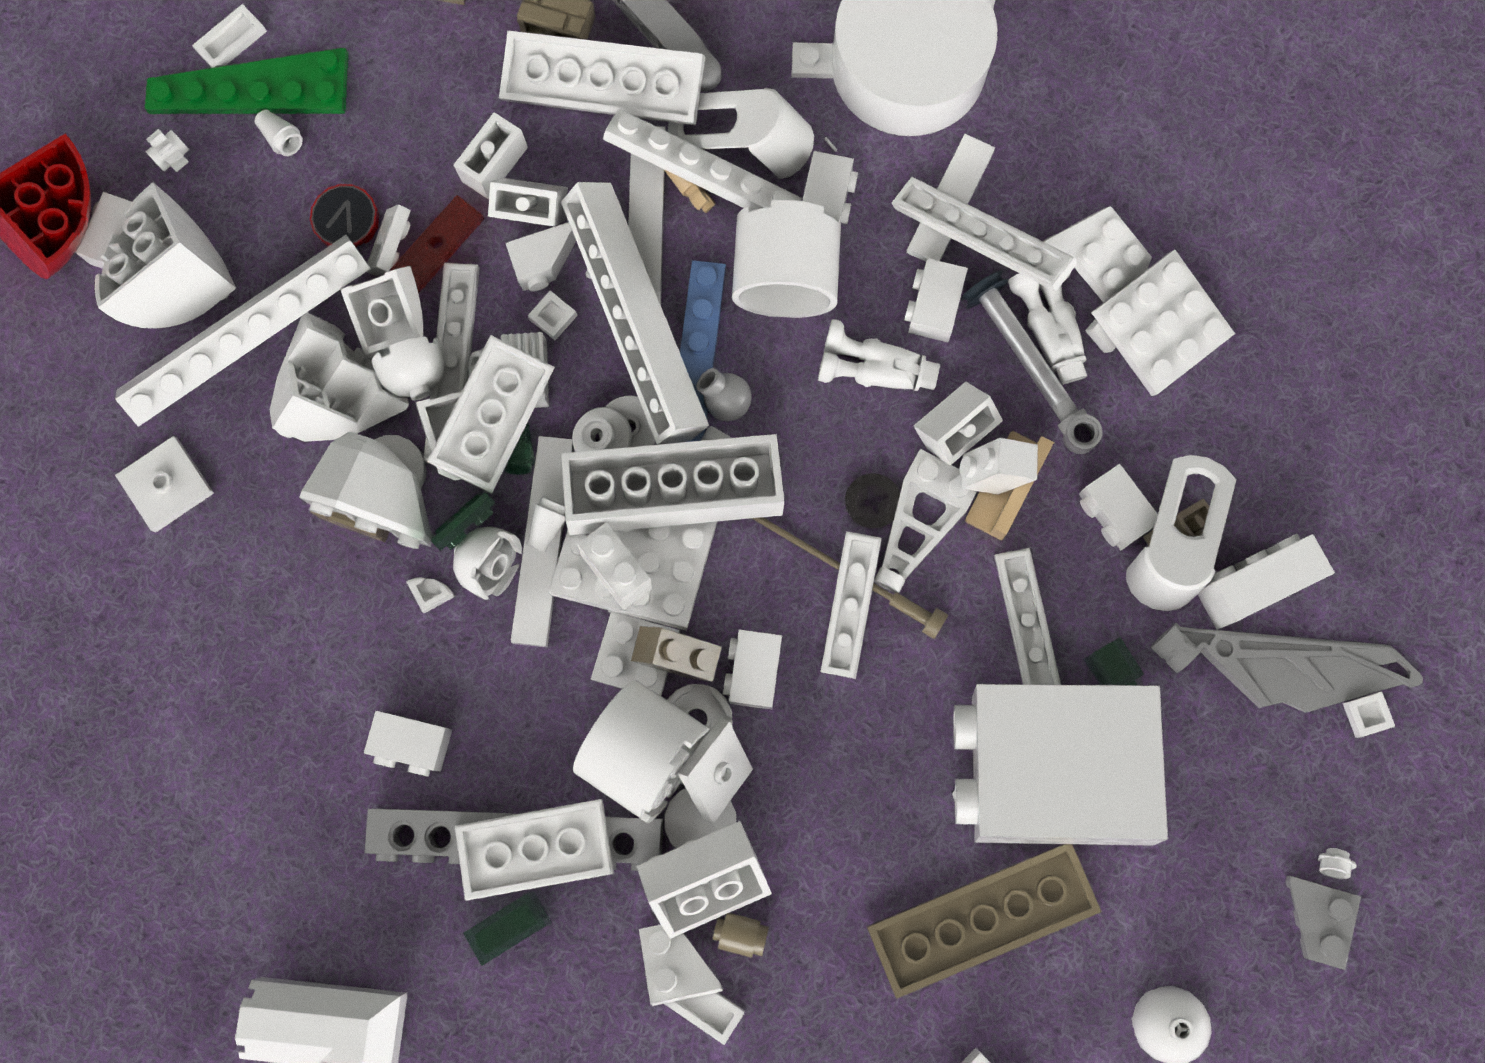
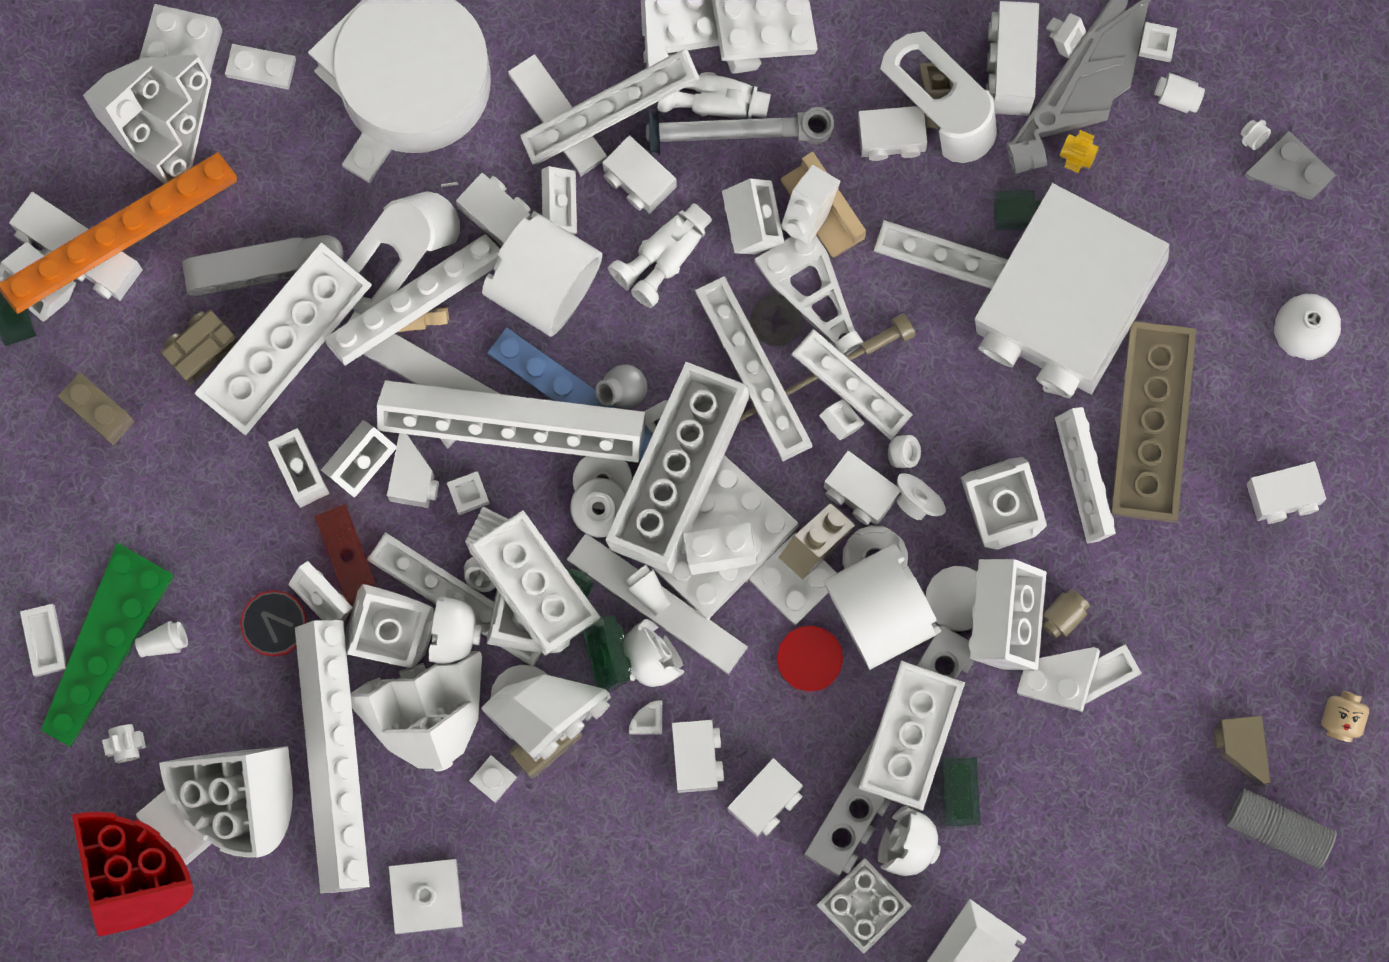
camera: 65 degrees left, 0 degrees up
(294, 481) = (493, 779): none -> white plate
(356, 893) = (864, 906): none -> white tile
(414, 655) = (695, 756): none -> white brick
(430, 905) = (910, 844): none -> white cylinder
(565, 710) = (809, 658): none -> red tile
(715, 771) = (928, 559): white plate -> none
(776, 728) = (918, 498): none -> white piece
(811, 505) = (753, 368): none -> white plate
(811, 614) = (841, 419): none -> white plate
(814, 690) = (904, 451): none -> white tile
(818, 814) = (1004, 503): none -> white slope
(871, 243) = (559, 197): none -> white plate
(890, 880) = (1085, 475): none -> white plate
(1210, 697) = (1079, 151): none -> yellow gear
(1320, 622) = (1067, 34): none -> white tile
(1330, 764) = (1179, 93): none -> white brick

